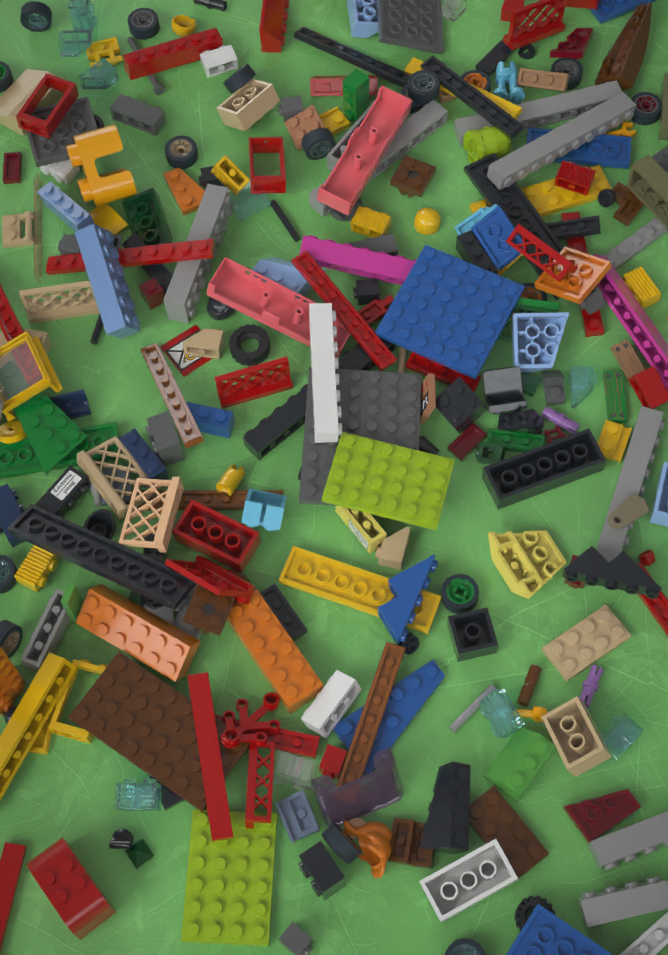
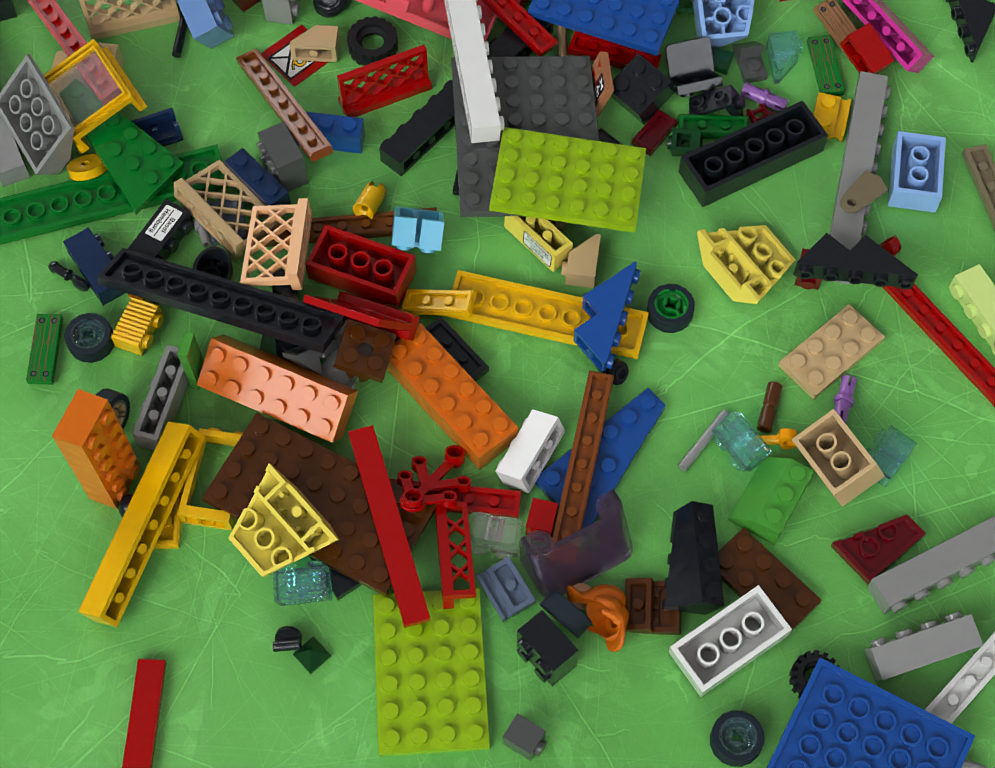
camera: 10 degrees left, 0 degrees up
(70, 888) = (231, 703): red brick -> none
(124, 748) = (279, 525): none -> light yellow wedge
(274, 571) = (439, 302): none -> yellow tile
(472, 634) = (693, 352): black brick -> none

